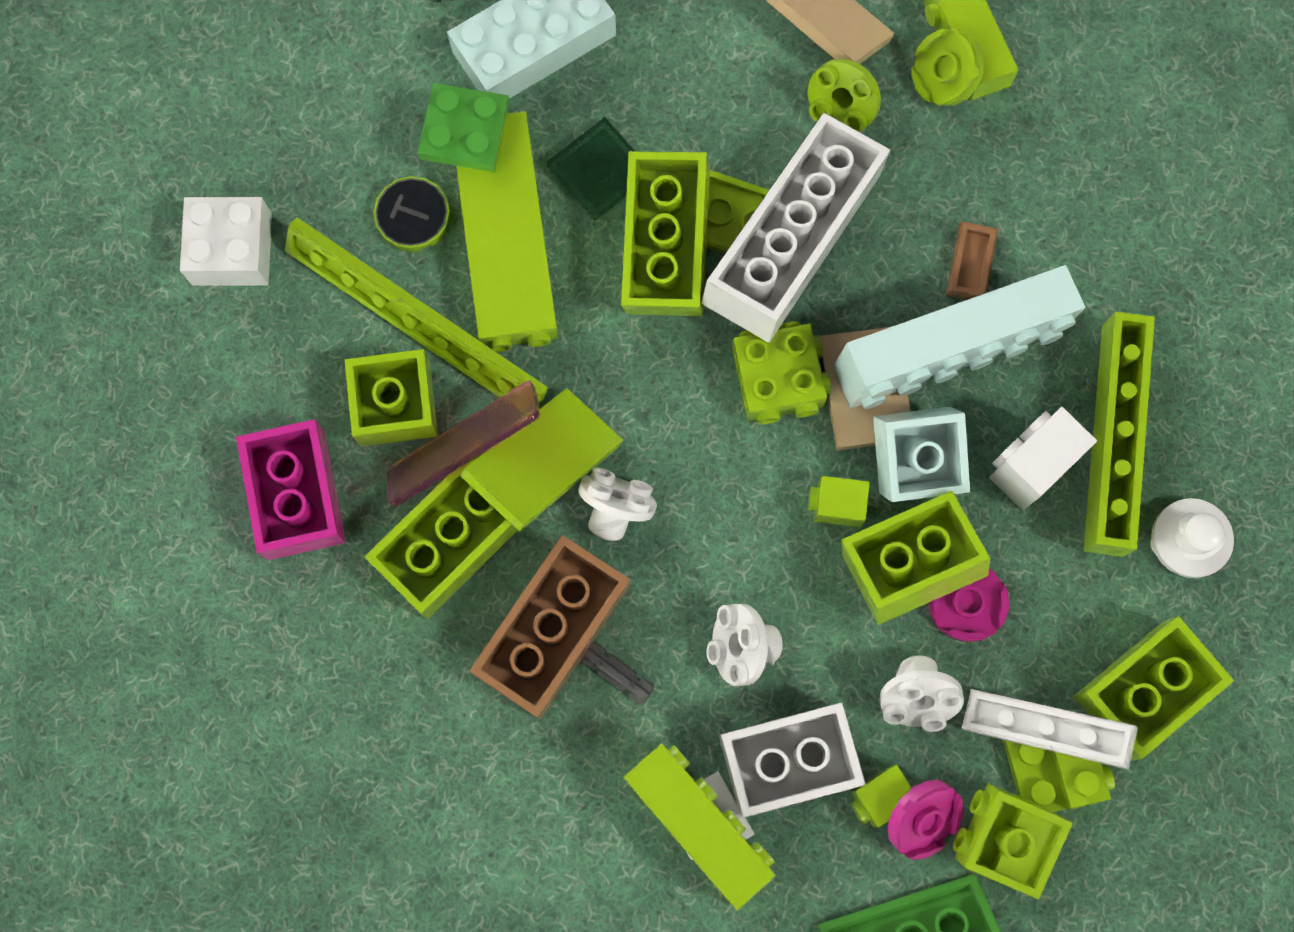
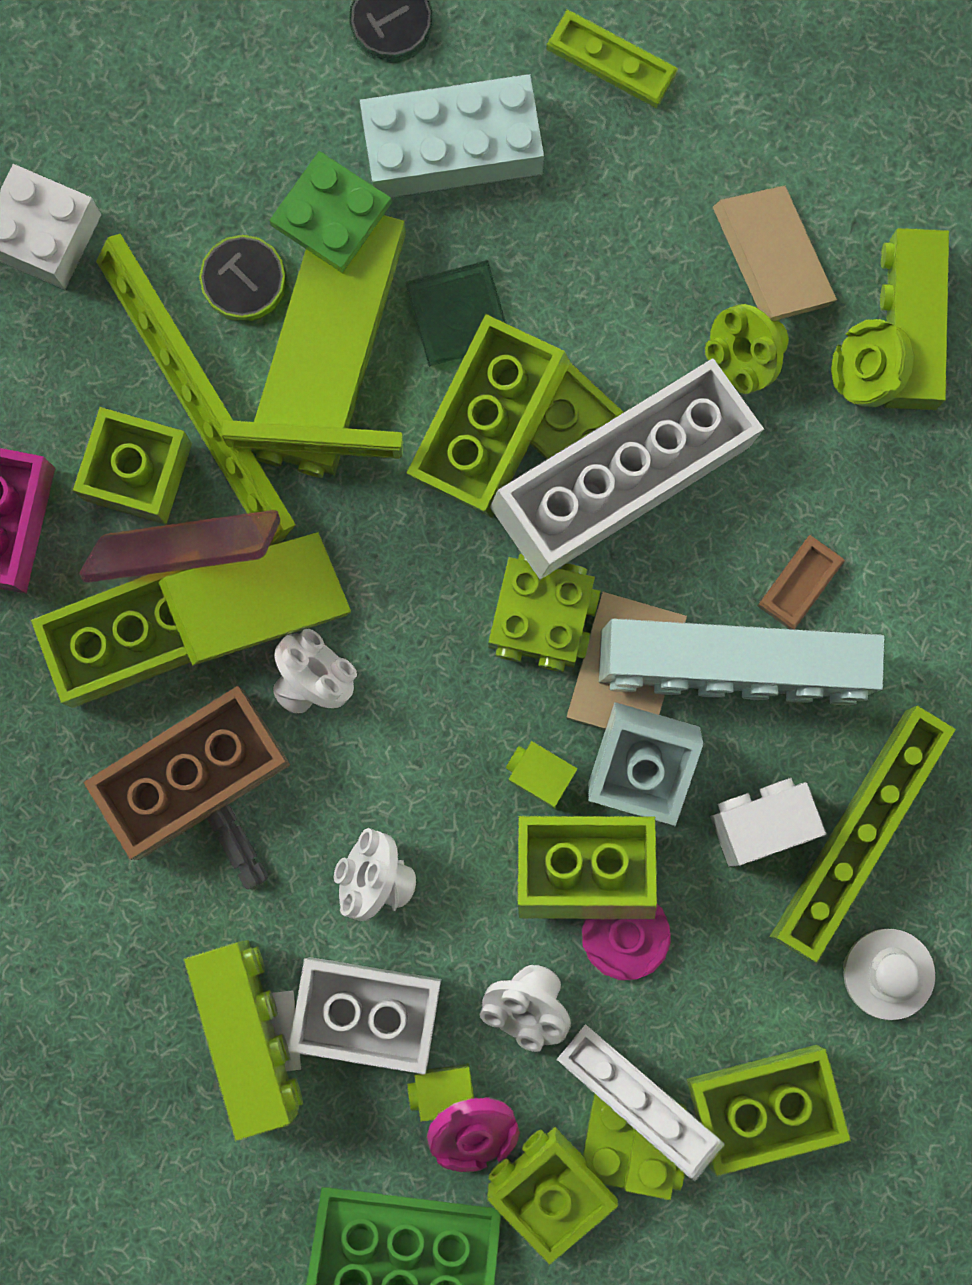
camera: 25 degrees right, 5 degrees up
(533, 309) = (312, 439): none -> lime tile

